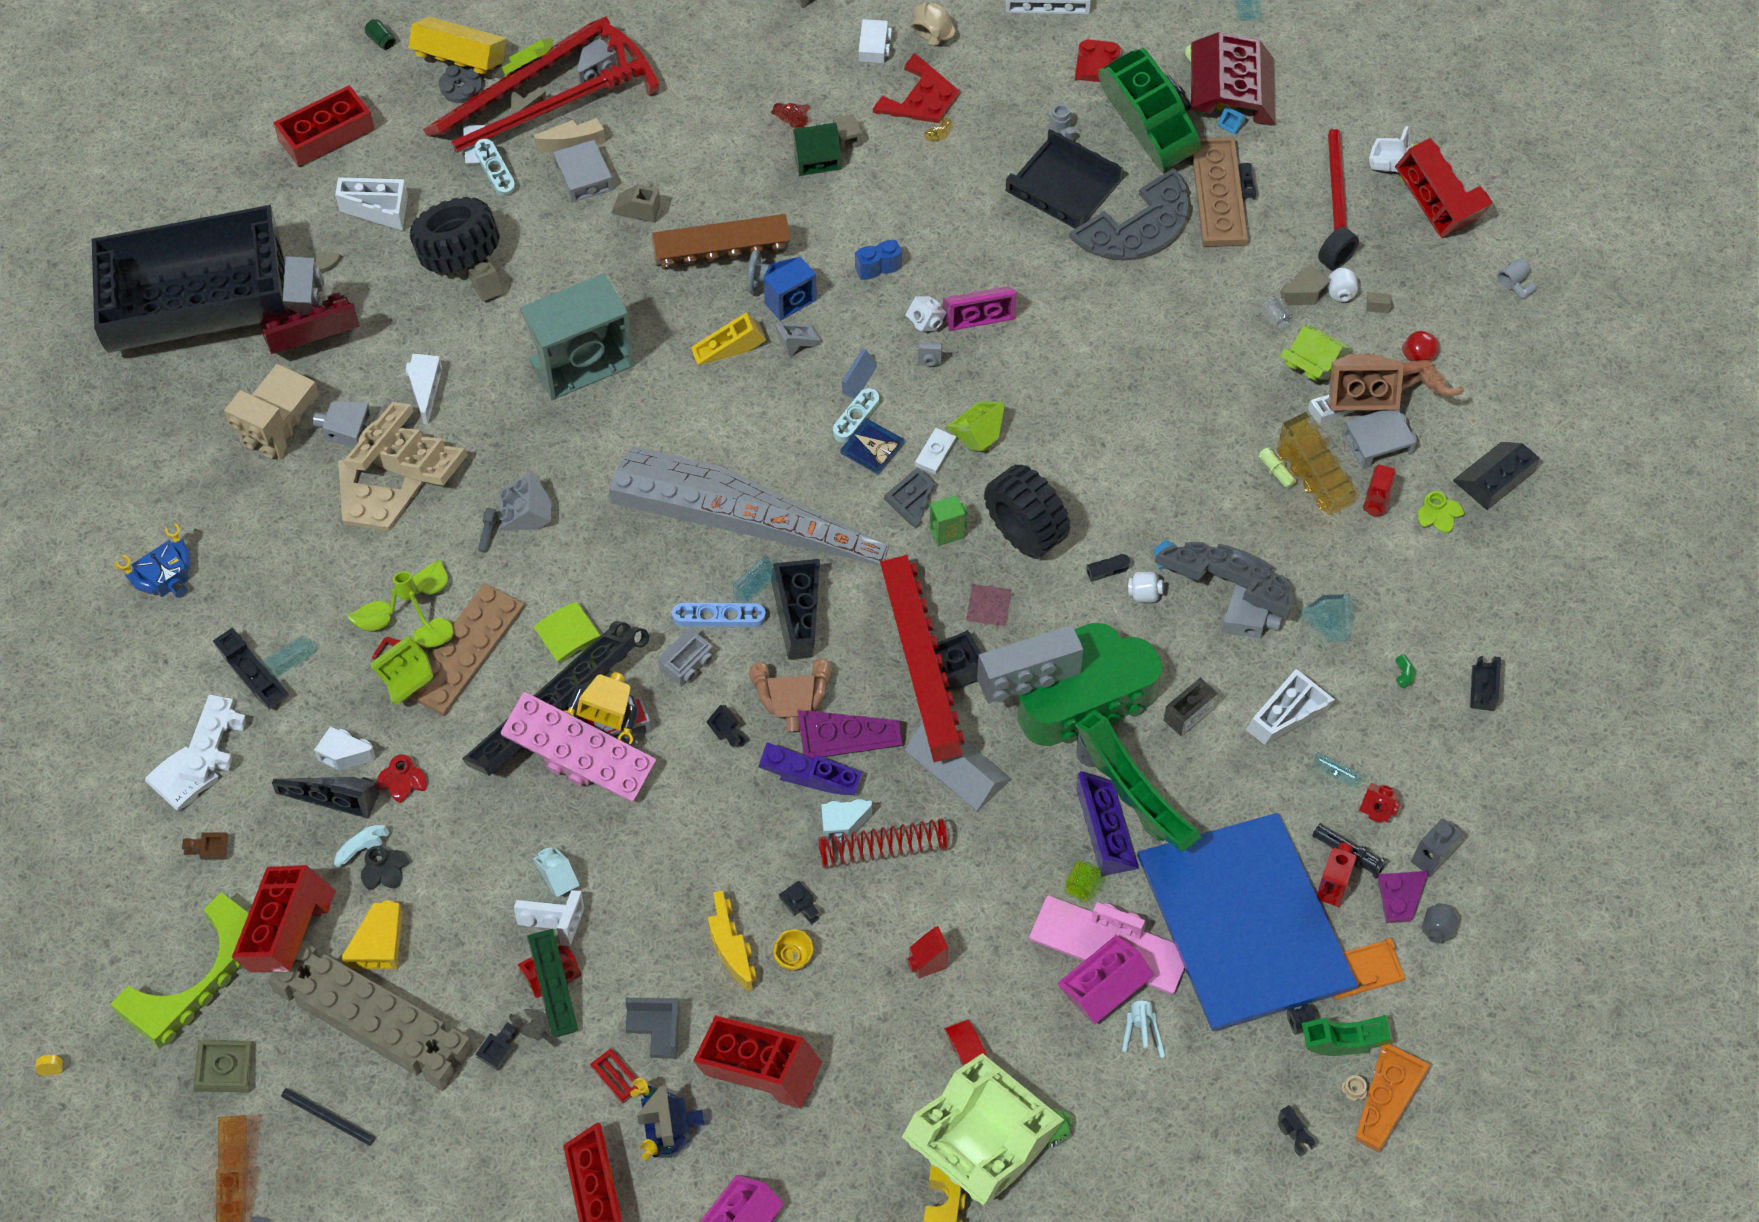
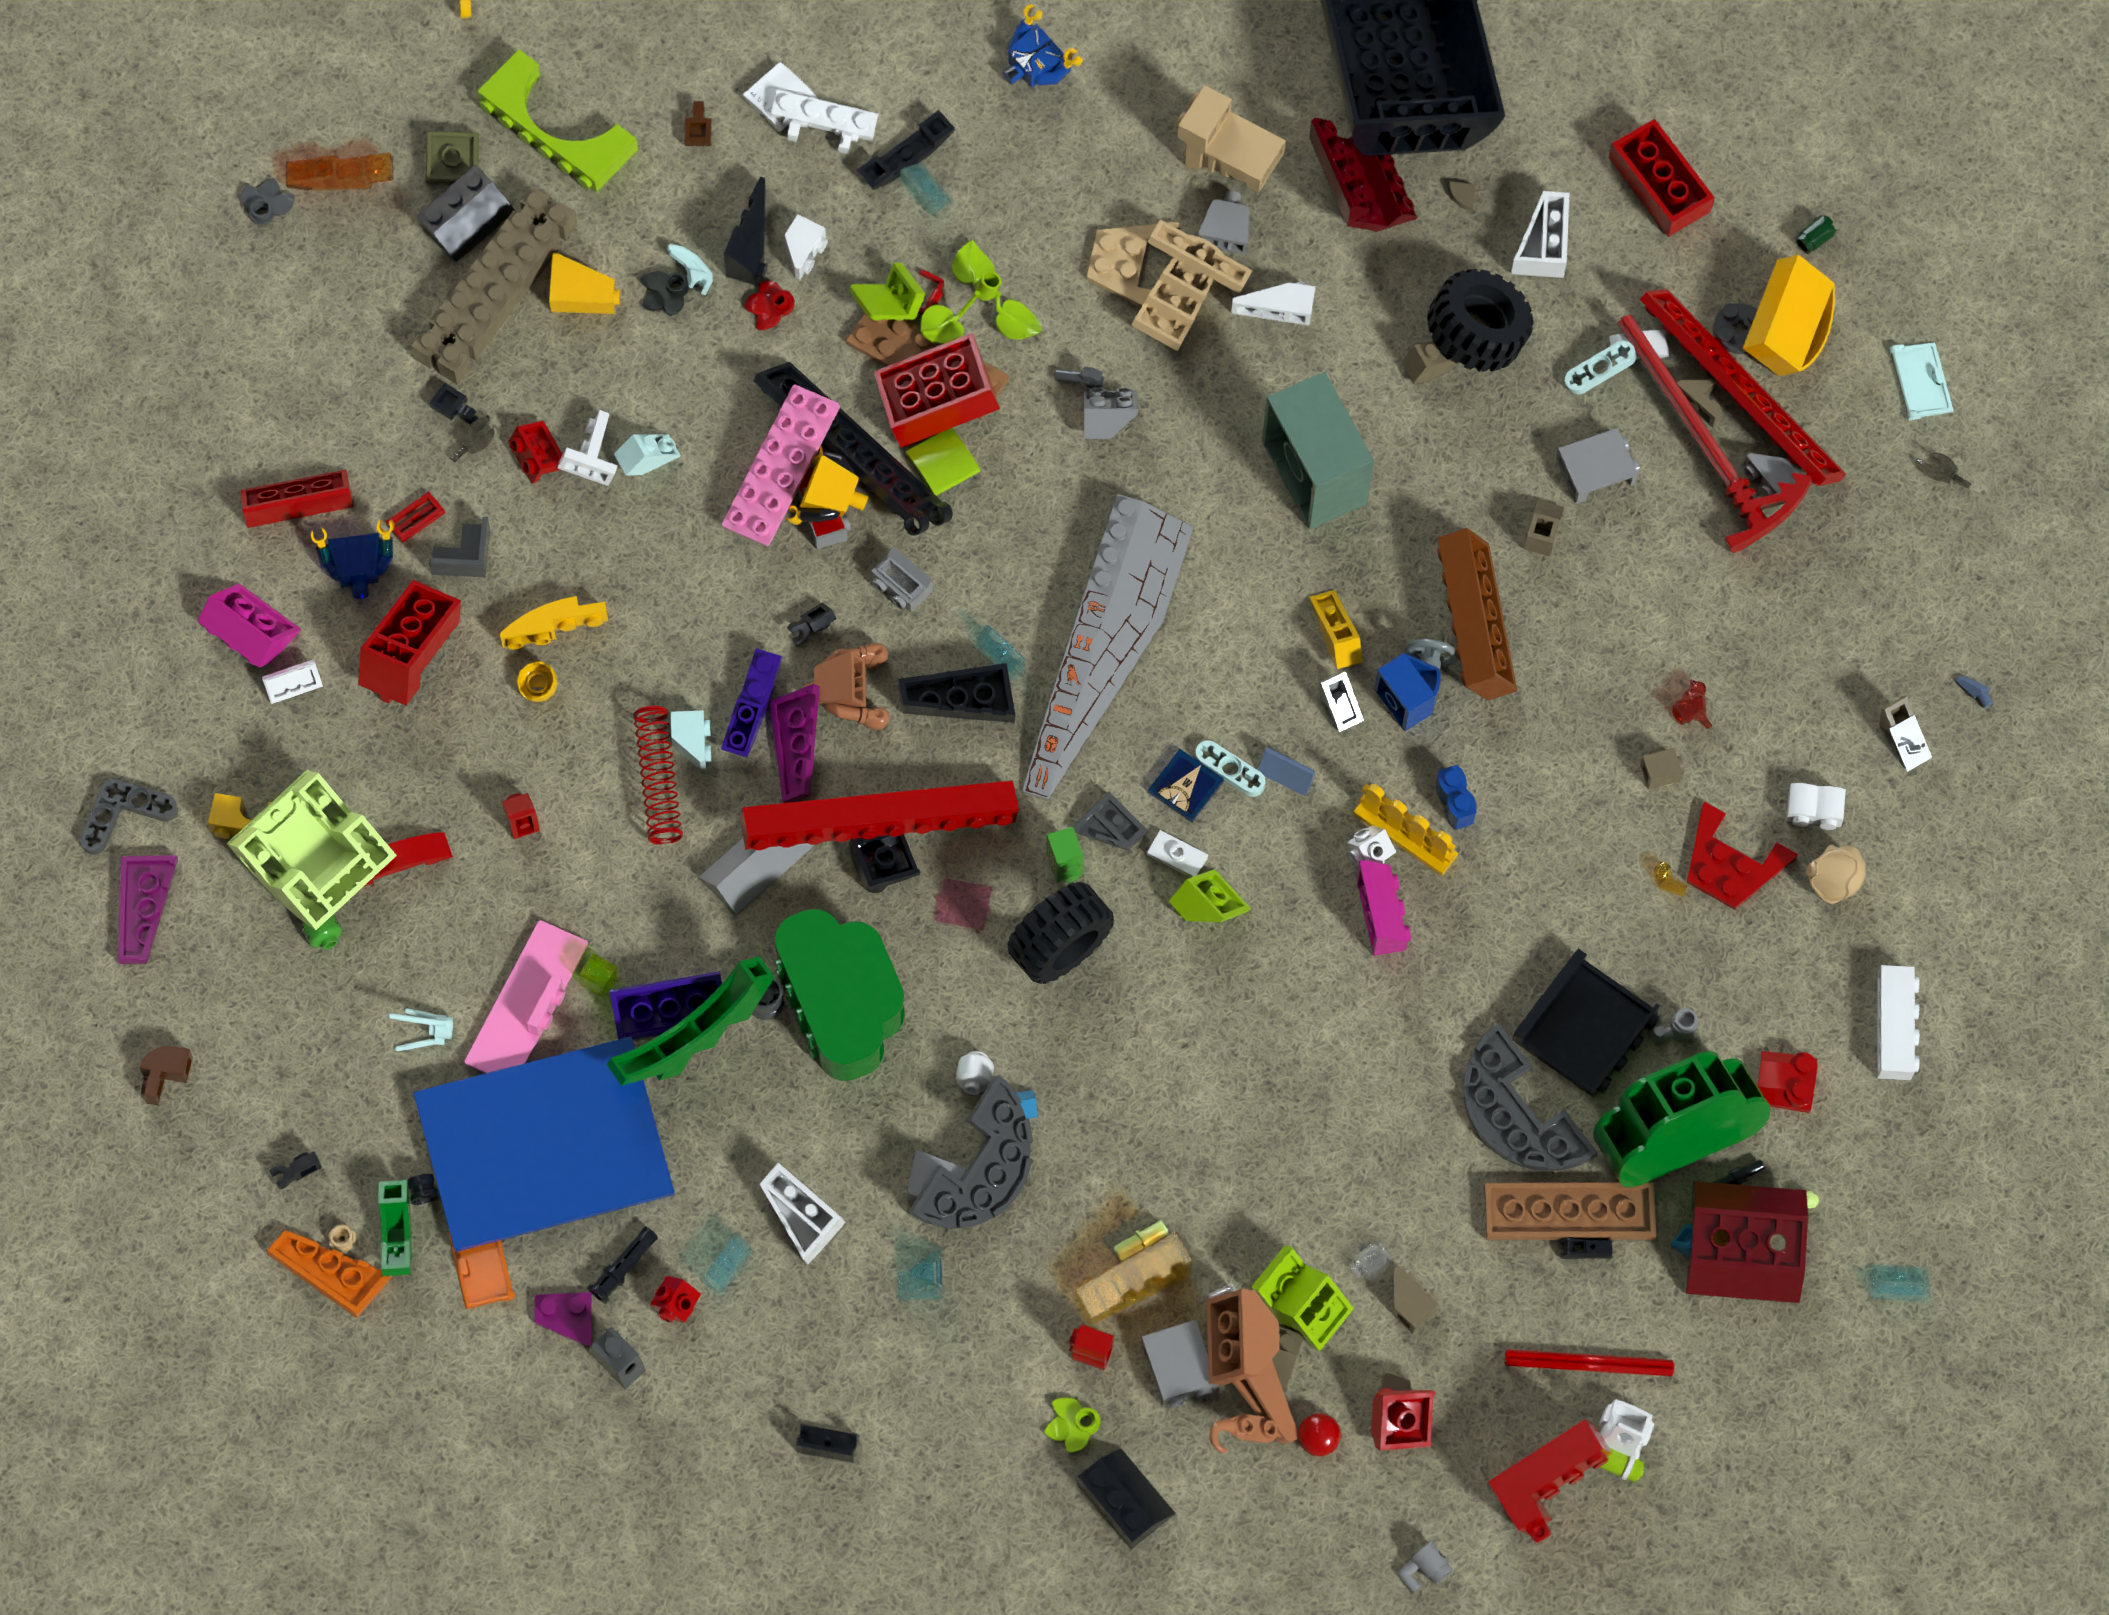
camera: 90 degrees right, 10 degrees up
(281, 917) = (592, 189): red hinge -> none
(289, 1045) = (465, 213): none -> black slope
(302, 284) = (1382, 156): light grey slope -> none
(327, 1116) = (391, 259): black bar -> none
(500, 631) = (936, 390): none -> red slope
(528, 55) = (1770, 397): lime slope -> none
(552, 982) = (510, 447): dark green plate -> none
(569, 135) = (1652, 453): tan slope -> none
(658, 1112) = (358, 547): dark tan slope -> none
(719, 611) = (959, 617): light blue beam -> none
(795, 1174) = (292, 681): none -> white plate
(799, 900) = (600, 692): black plate -> none
(817, 149) = (1624, 729): dark green slope -> none
(914, 283) = (1406, 830): none -> yellow fence
(929, 354) = (1309, 850): light grey bracket -> none
(1029, 664) = (833, 910): light grey brick -> none
(1106, 979) = (479, 989): dark pink slope -> none
(1108, 567) = (1006, 1035): black bar -> none
(1190, 706) = (808, 1105): clear smoke brick -> none
(1336, 875) = (577, 1234): red torso -> none
(1338, 248) = (1465, 1342): black tyre -> none
(1342, 285) = (1413, 1345): white head -> none
(1405, 290) = (1402, 1419): none -> red slope
(1407, 671) = (849, 1358): green arm -> none
(1440, 923) = (524, 1349): dark grey head -> none

